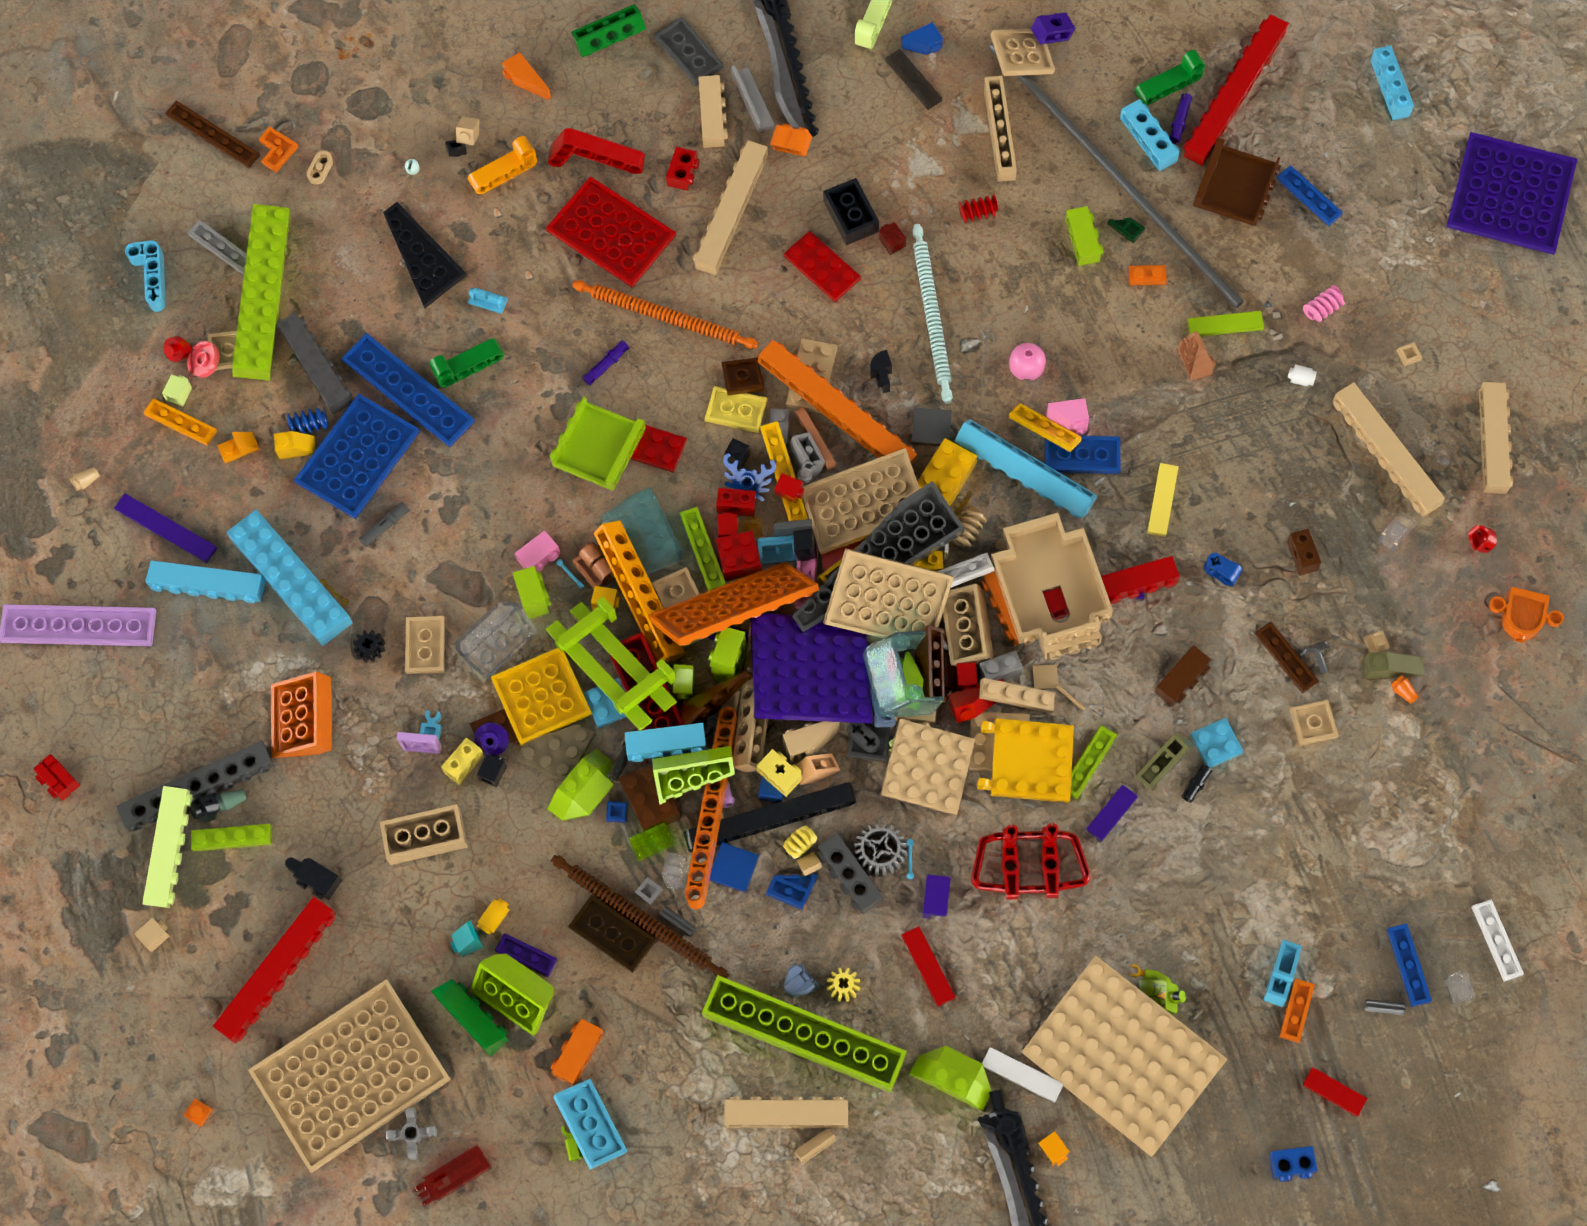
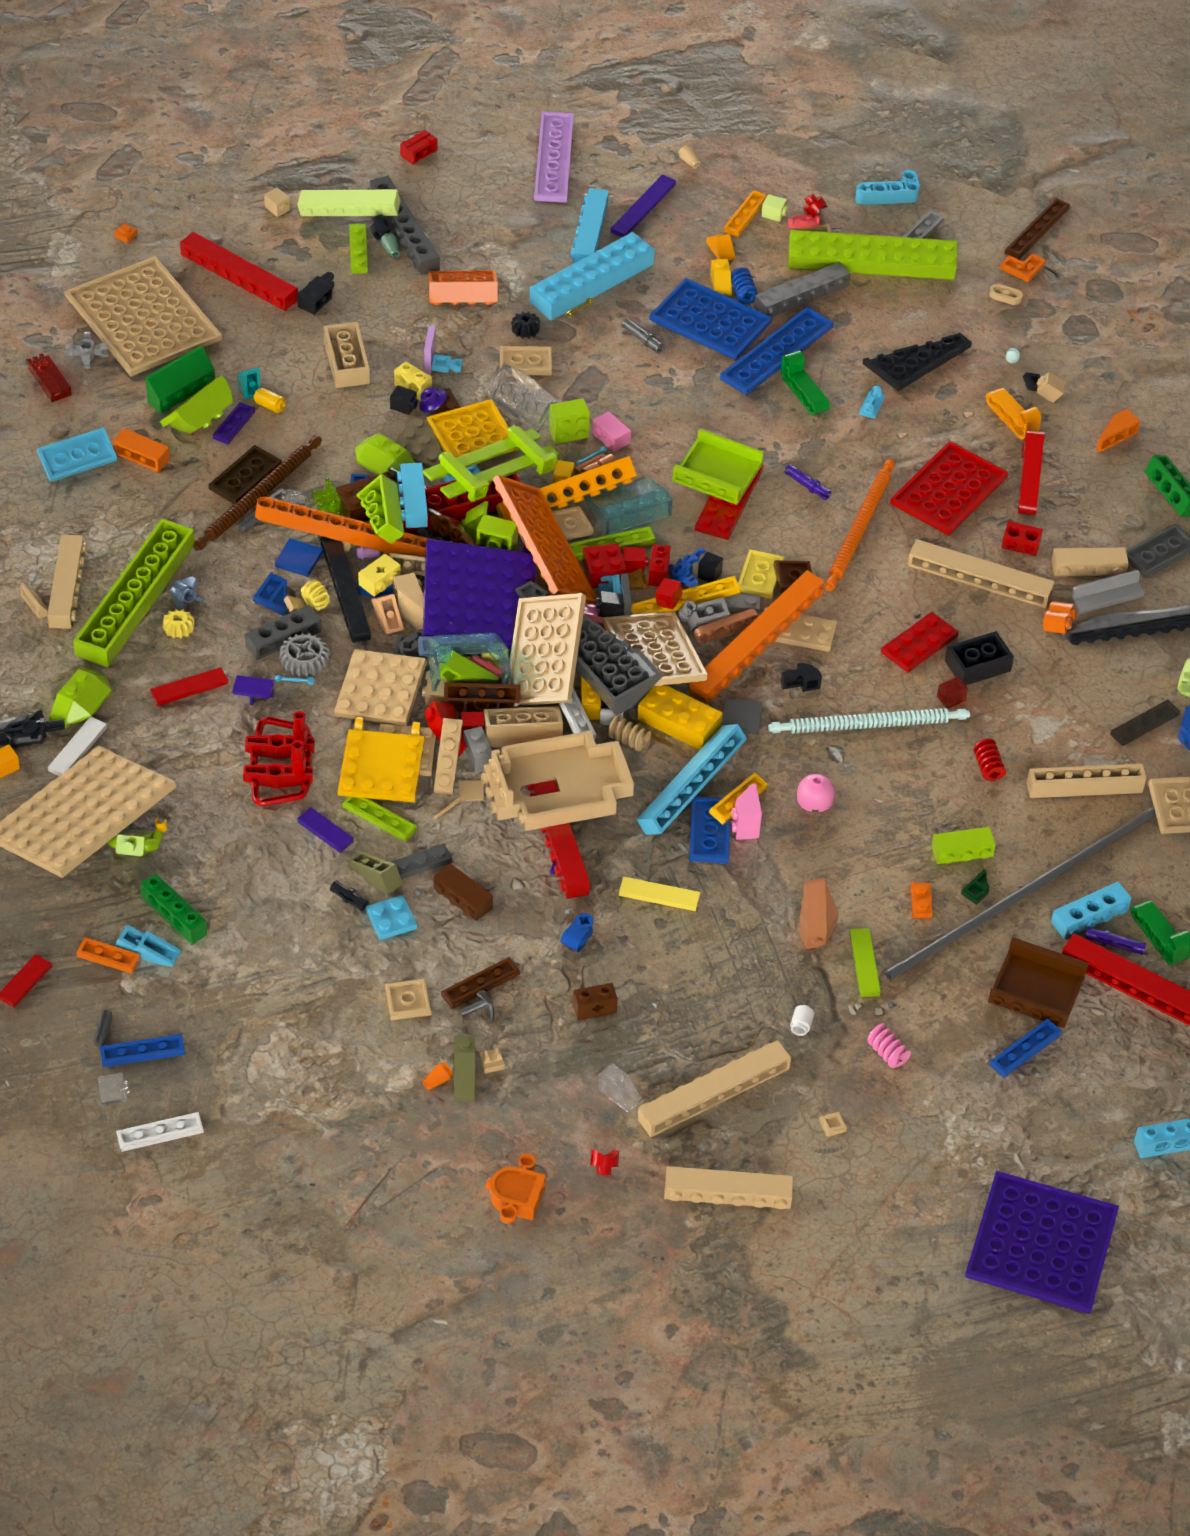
camera: 85 degrees right, 20 degrees down
(1144, 719) = (423, 861): none -> dark grey plate
(1235, 950) = (173, 909): none -> green brick

